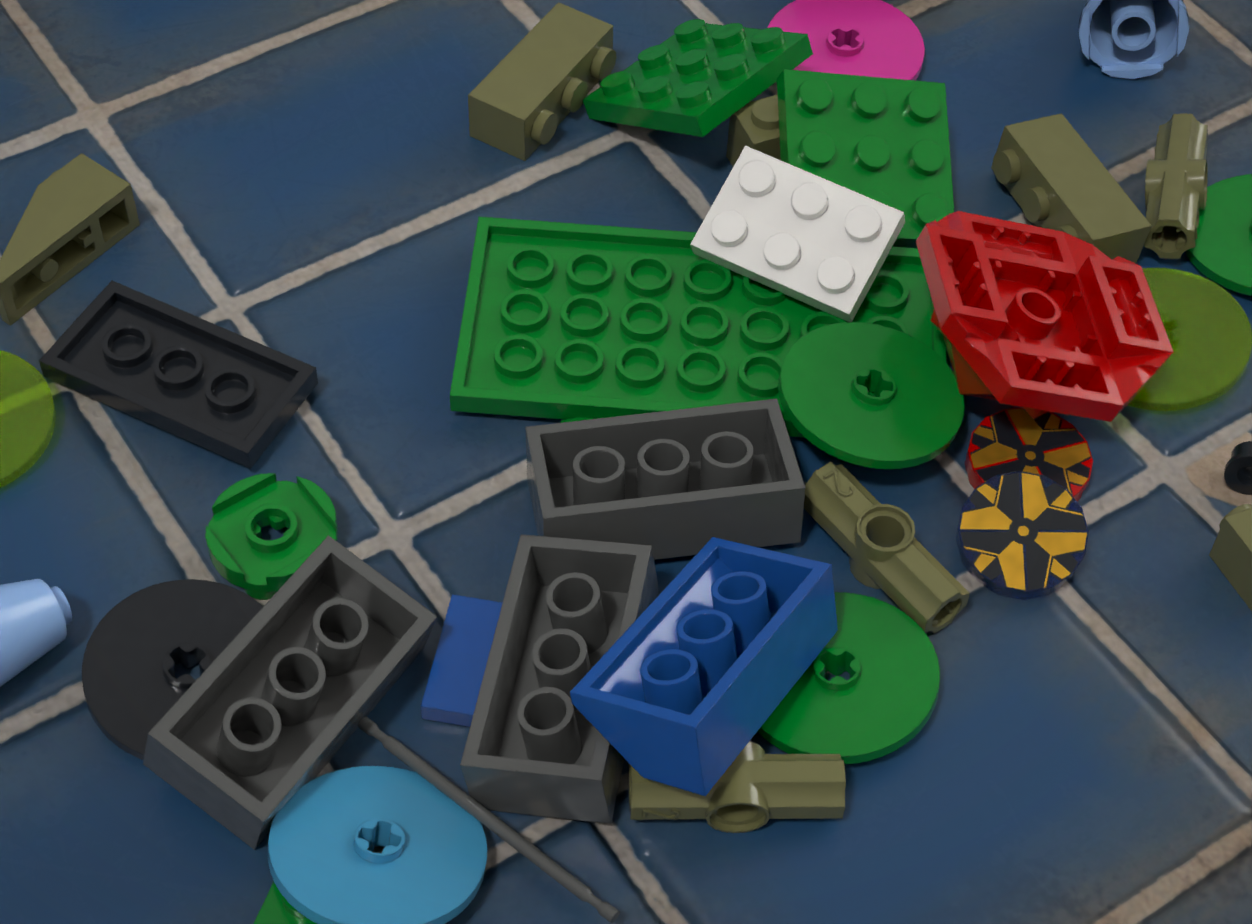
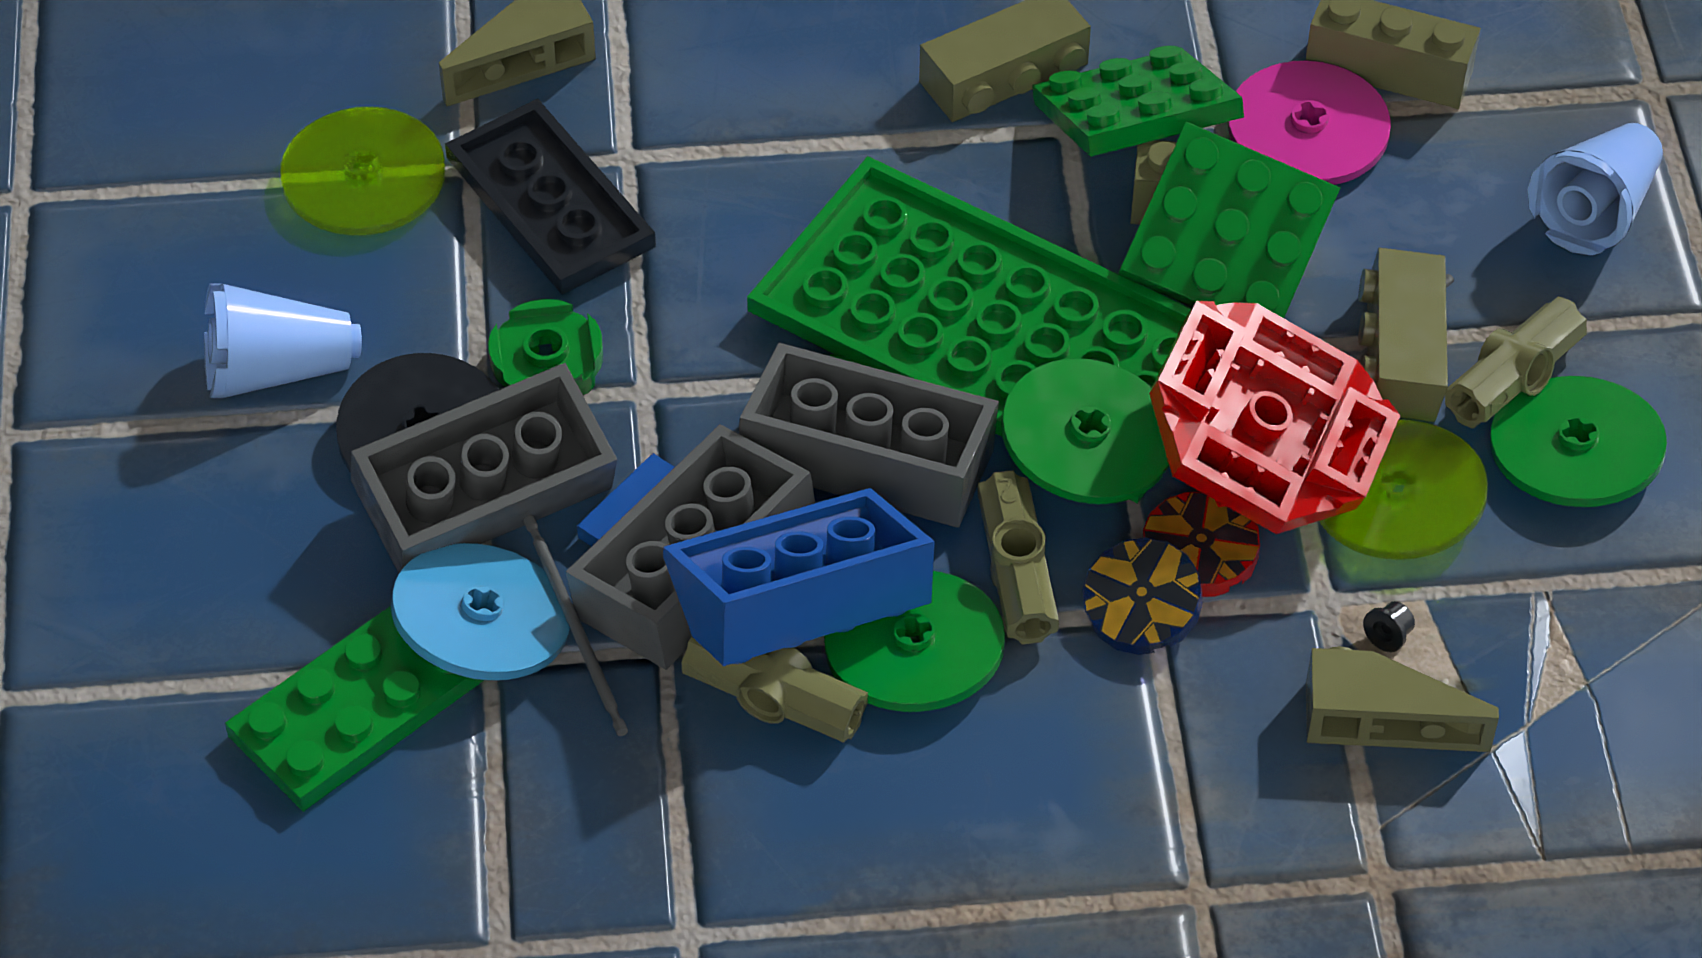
camera: 30 degrees right, 0 degrees up
(798, 233) = (1117, 272): white plate -> none

